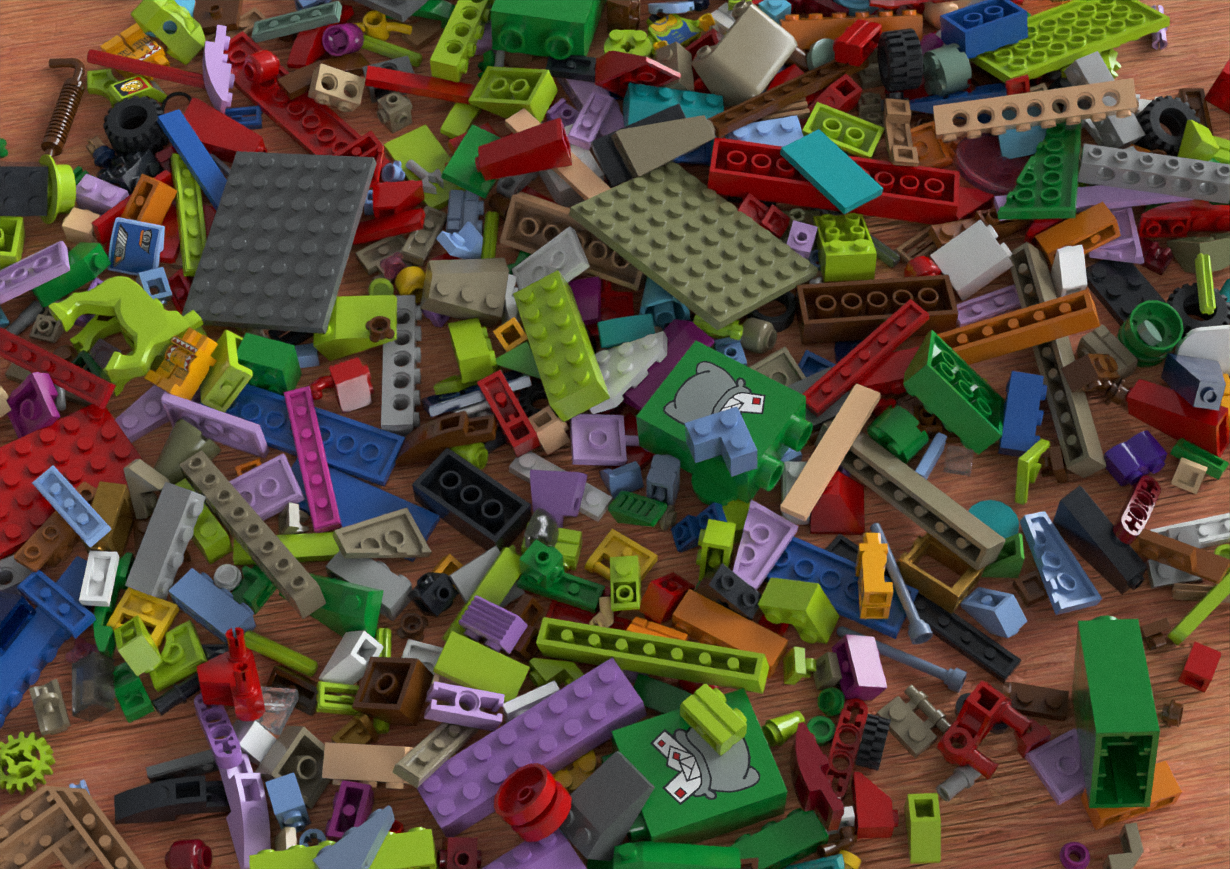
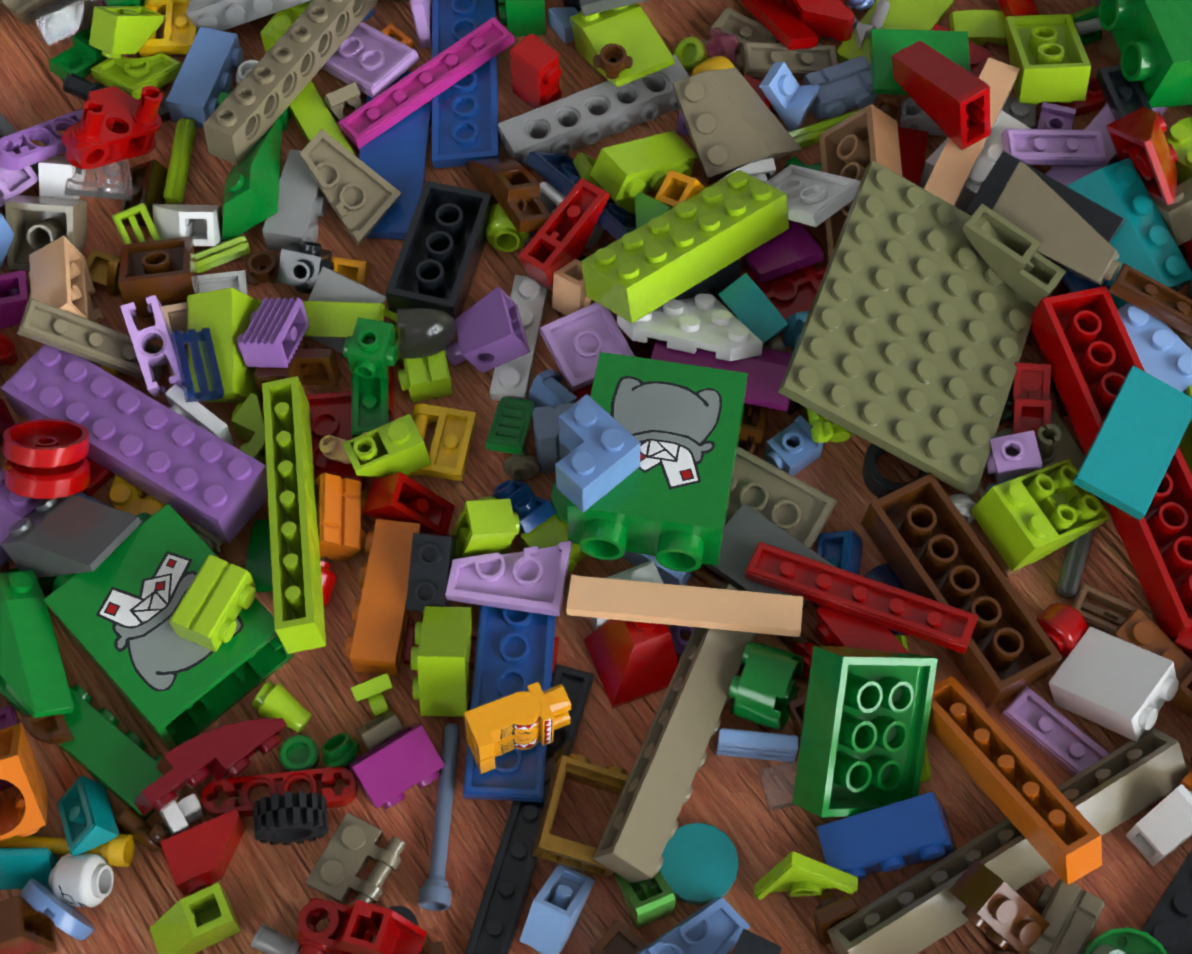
camera: 65 degrees right, 5 degrees up
(500, 679) = (211, 362): none -> clear blue tile
(673, 170) = (1012, 255): none -> olive slope
(758, 335) = (843, 465): dark tan head -> none
(918, 630) = (476, 816): sand blue piece -> none

